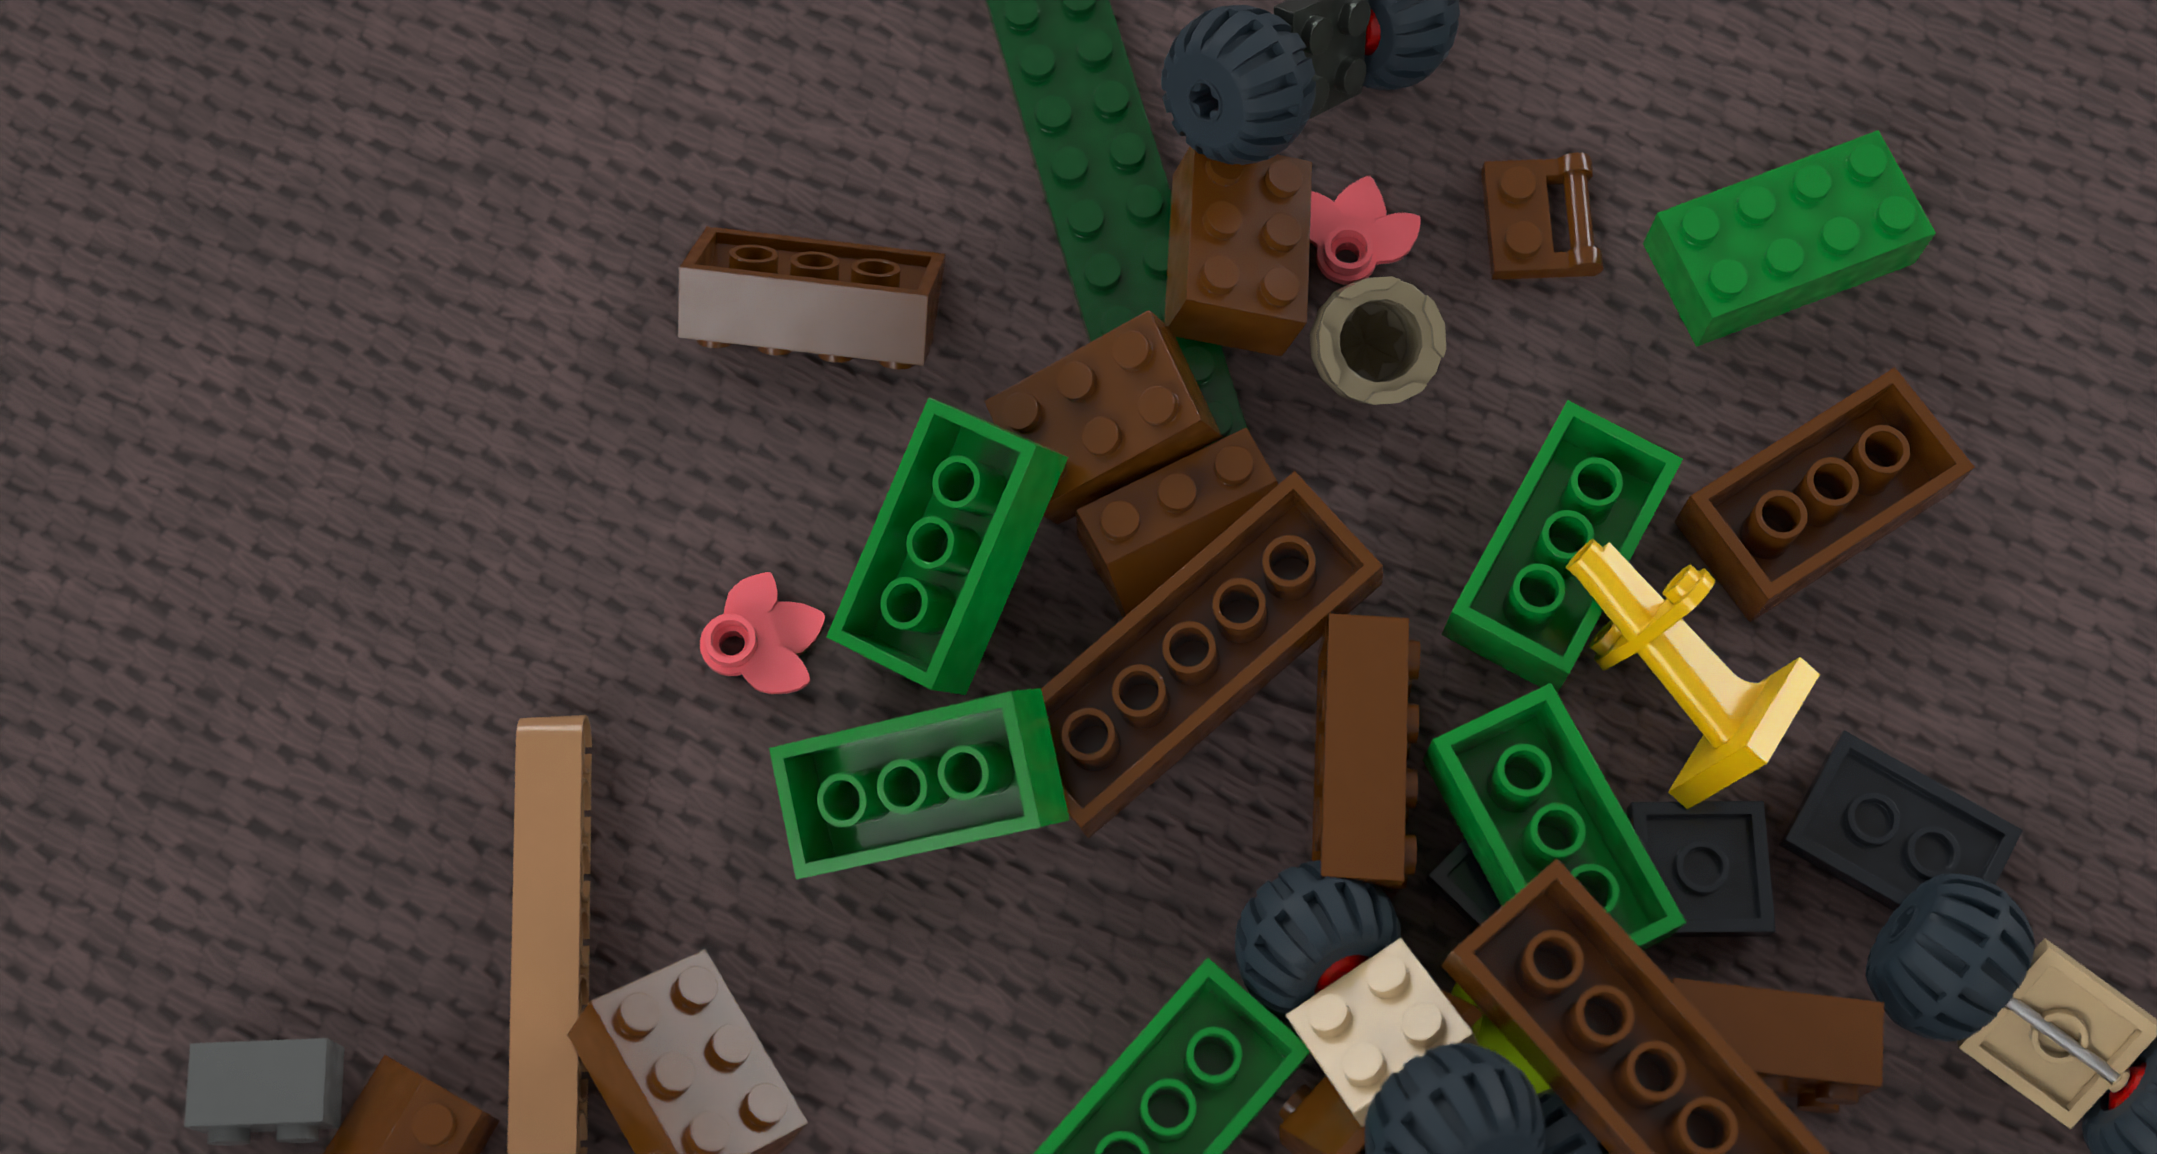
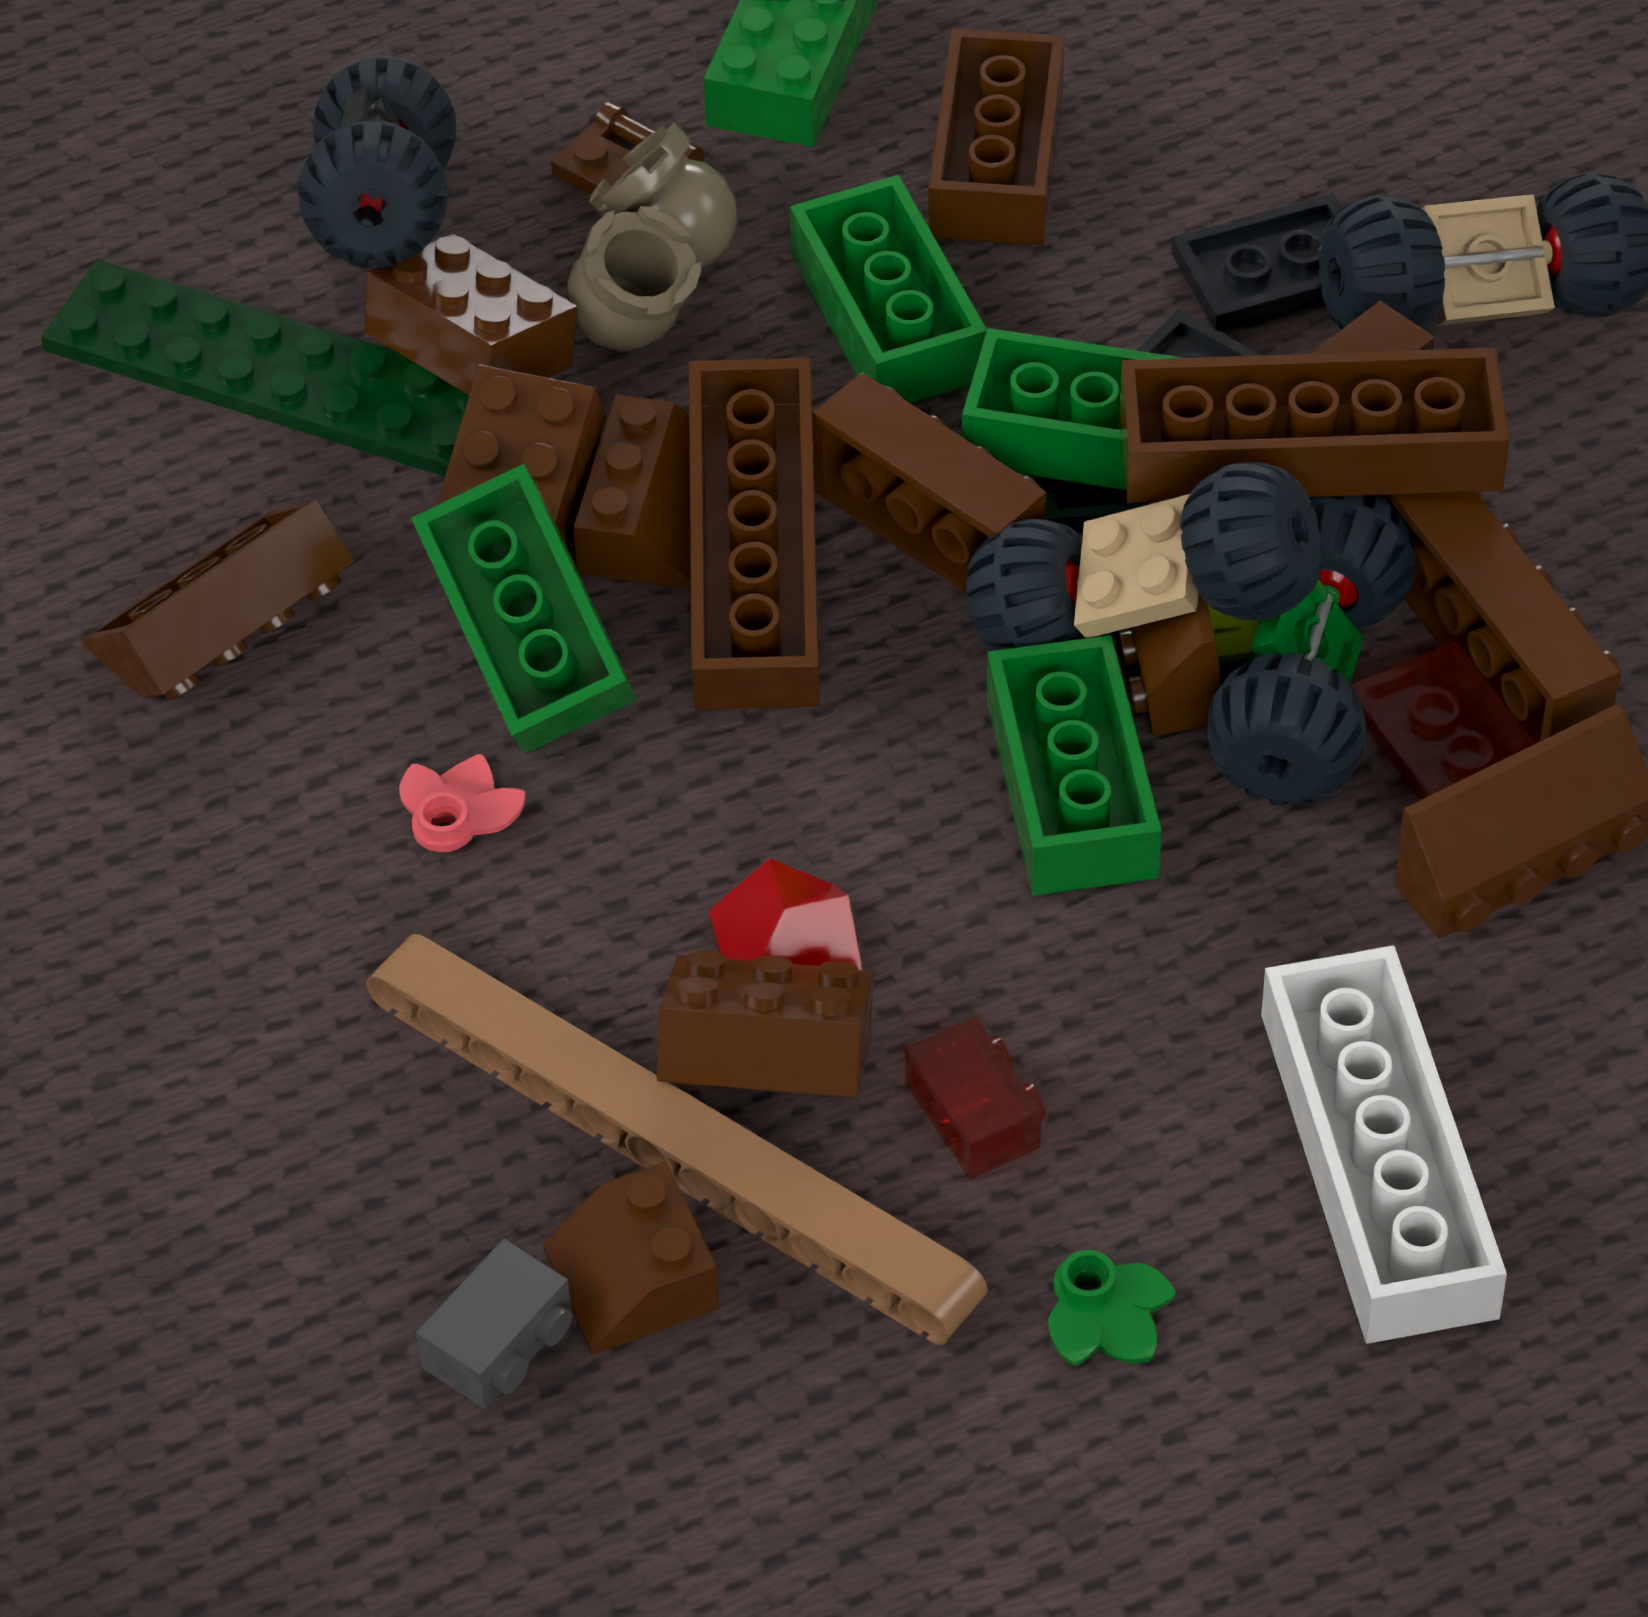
camera: 50 degrees left, 20 degrees down
(822, 1011) = (787, 917): none -> red slope
(919, 783) = (689, 732): green brick -> none
(1360, 225) = (539, 260): coral plate -> none
(1494, 297) = (676, 186): none -> dark tan tile
(1737, 717) = (1114, 268): yellow piece -> none

